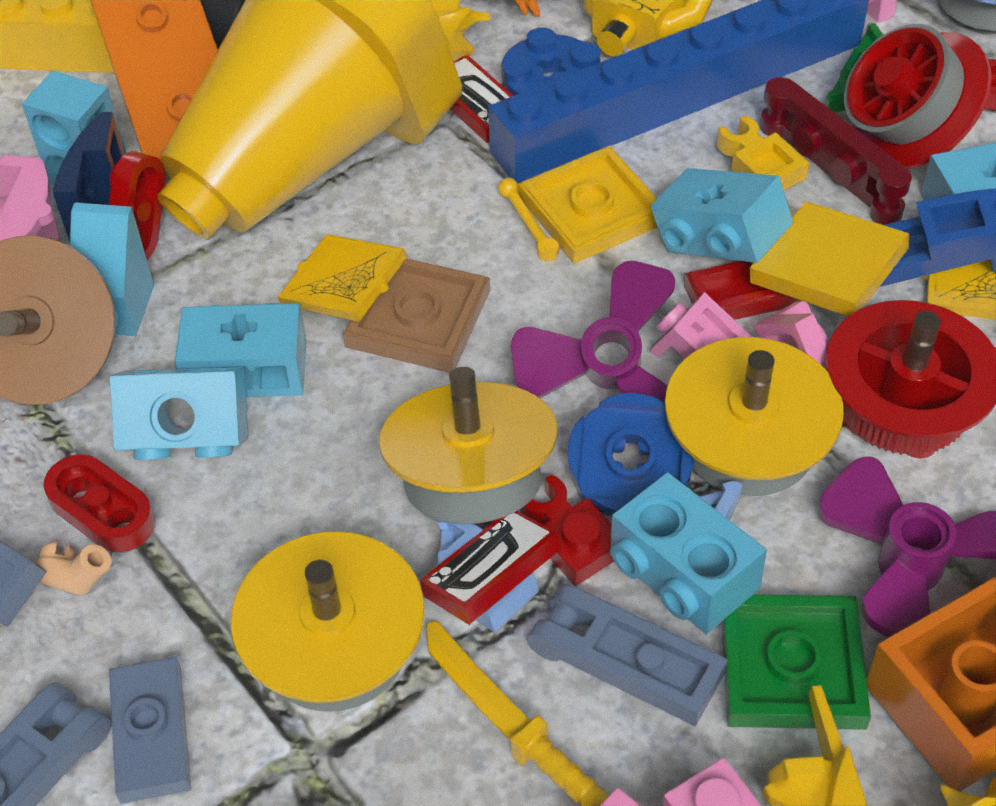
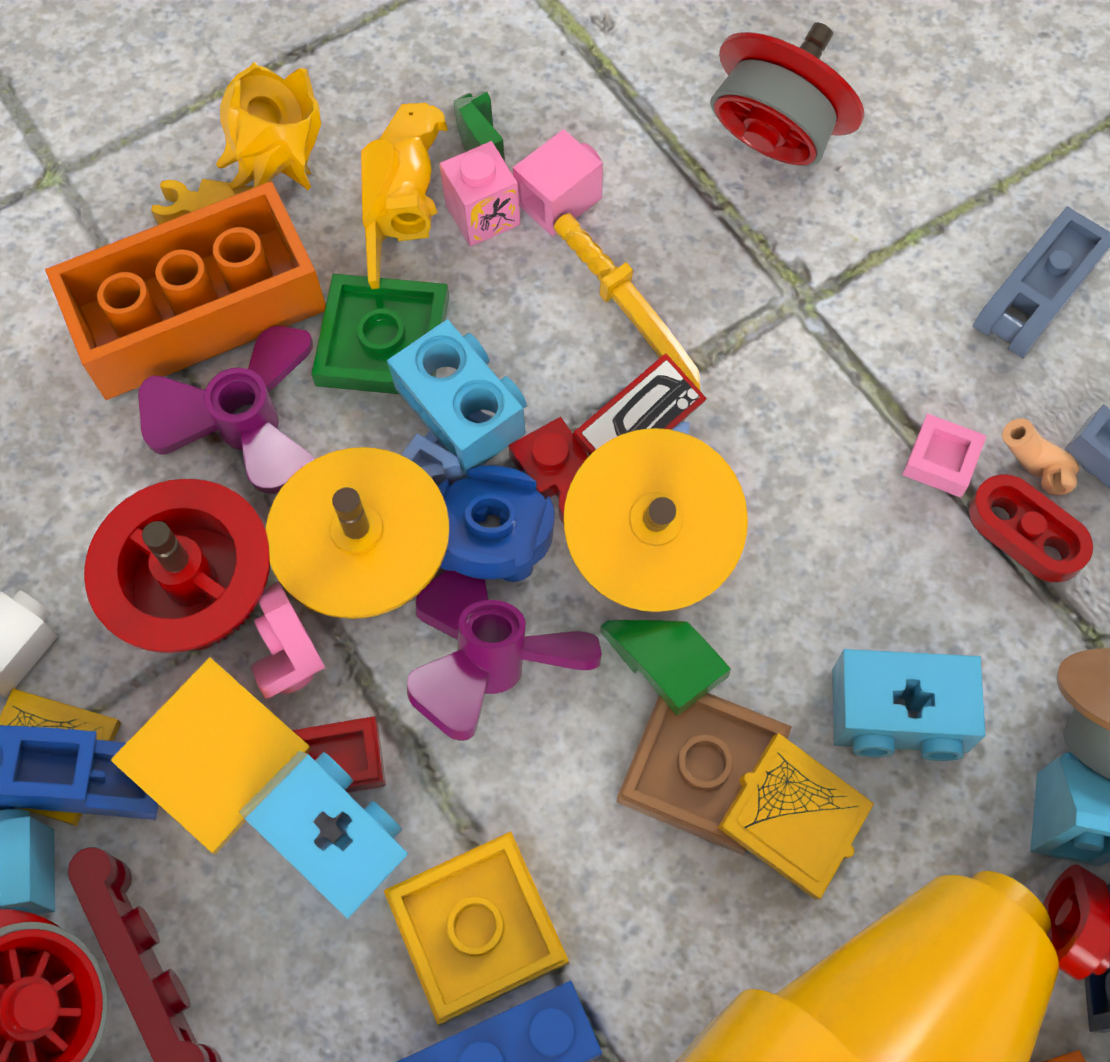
camera: 175 degrees left, 15 degrees up
(142, 417) = (967, 610): medium azure brick -> none
(149, 730) = (939, 319): sand blue plate -> none
(171, 564) = (944, 455): none -> bright pink plate
(328, 619) = (790, 352): yellow piece -> none
(437, 351) = (670, 657): none -> green slope
(547, 247) = (541, 858): yellow hinge -> none
(629, 653) = (527, 342): sand blue plate -> none
(695, 327) = (377, 670): bright pink bracket -> none
(762, 155) = (234, 963): yellow plate -> none

